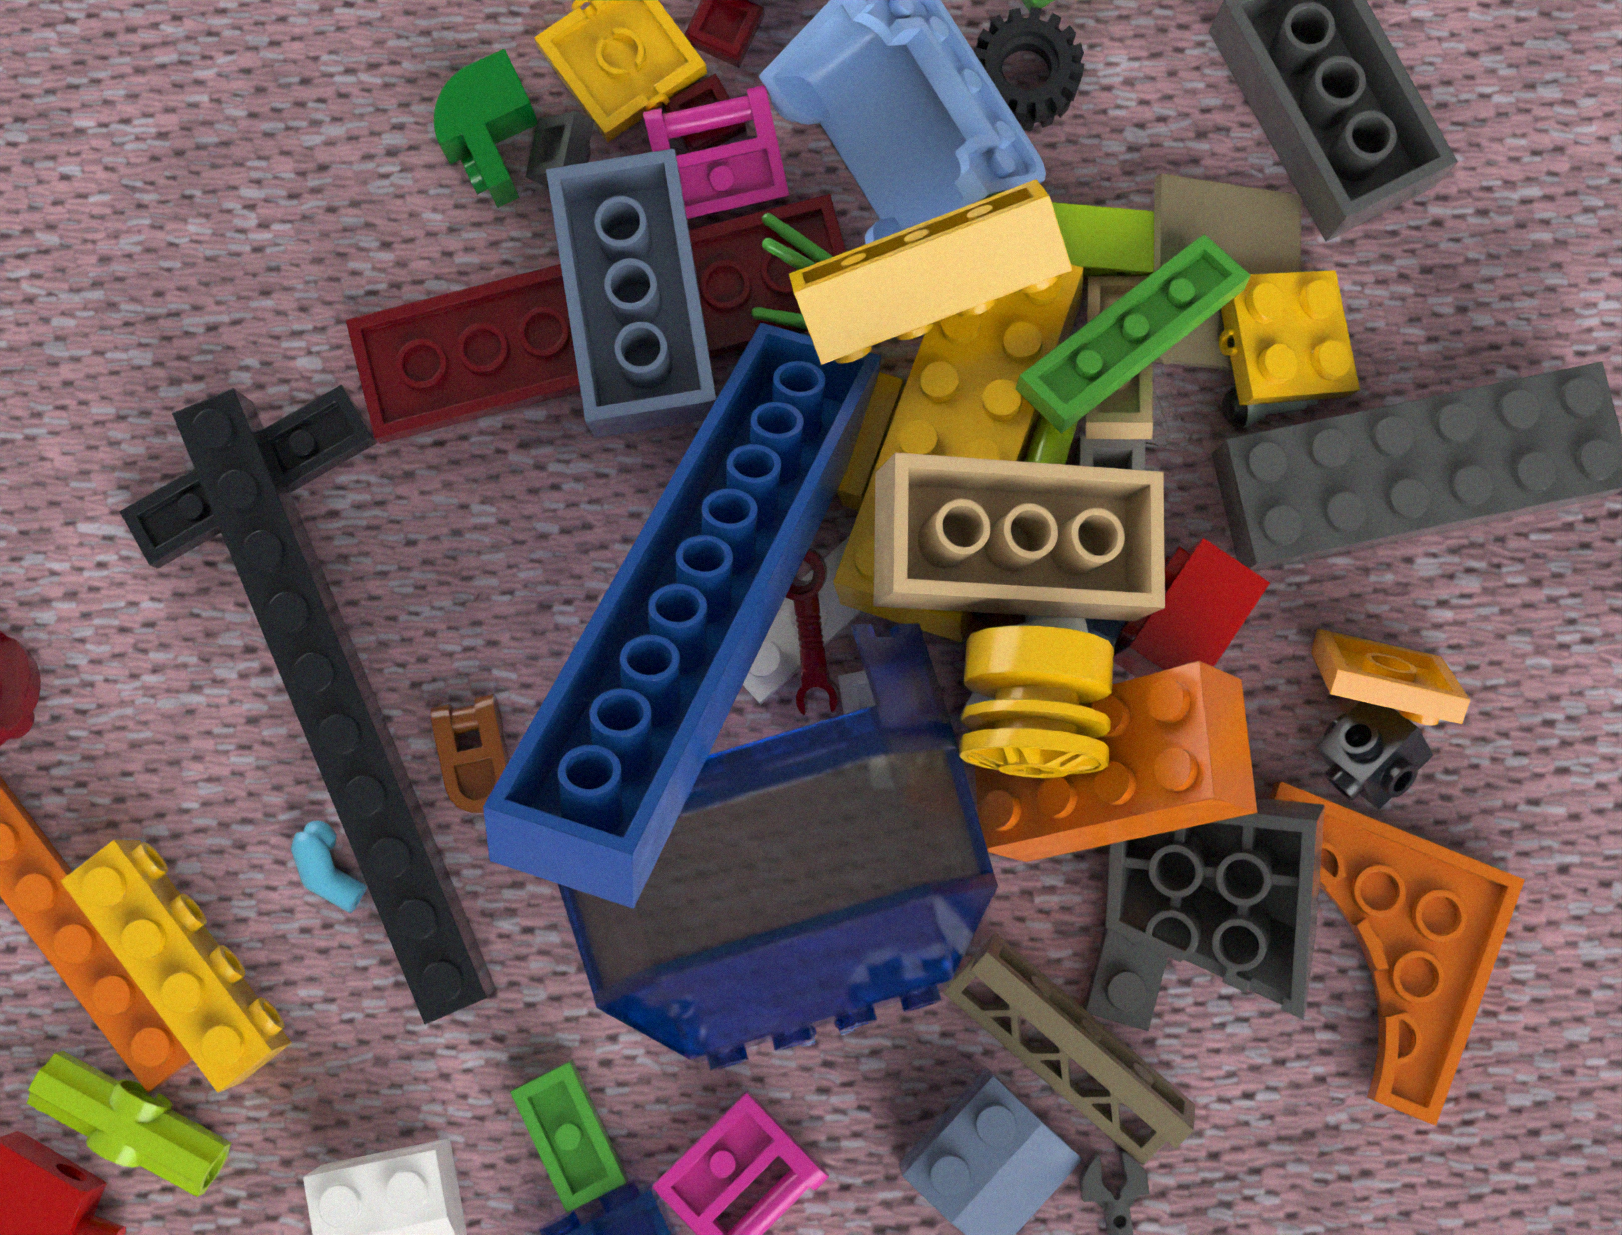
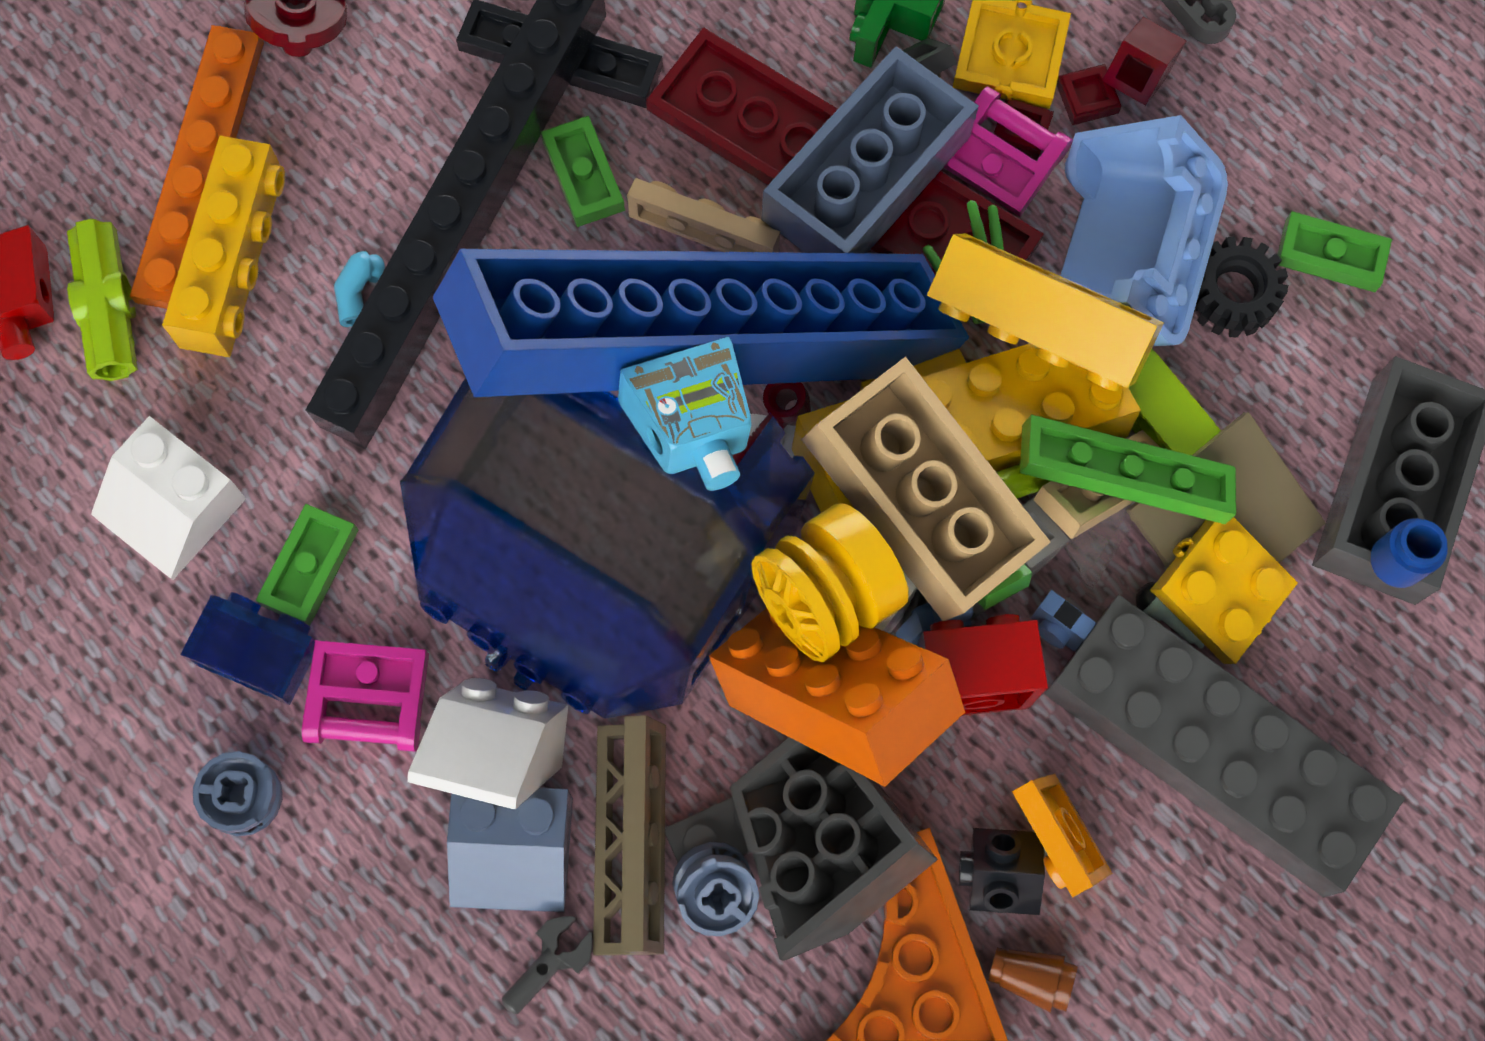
camera: 45 degrees right, 10 degrees down
(393, 558) = (583, 171): none -> bright green plate
(545, 491) = (699, 220): none -> tan plate
(796, 701) = (690, 410): none -> medium azure torso
(896, 1114) = (491, 743): none -> white slope
(1185, 1016) = (715, 890): none -> sand blue wheel
(1199, 506) = (1062, 622): none -> medium blue plate
(1418, 163) = (1409, 552): none -> blue brick
(1477, 802) = (1035, 977): none -> dark orange cone

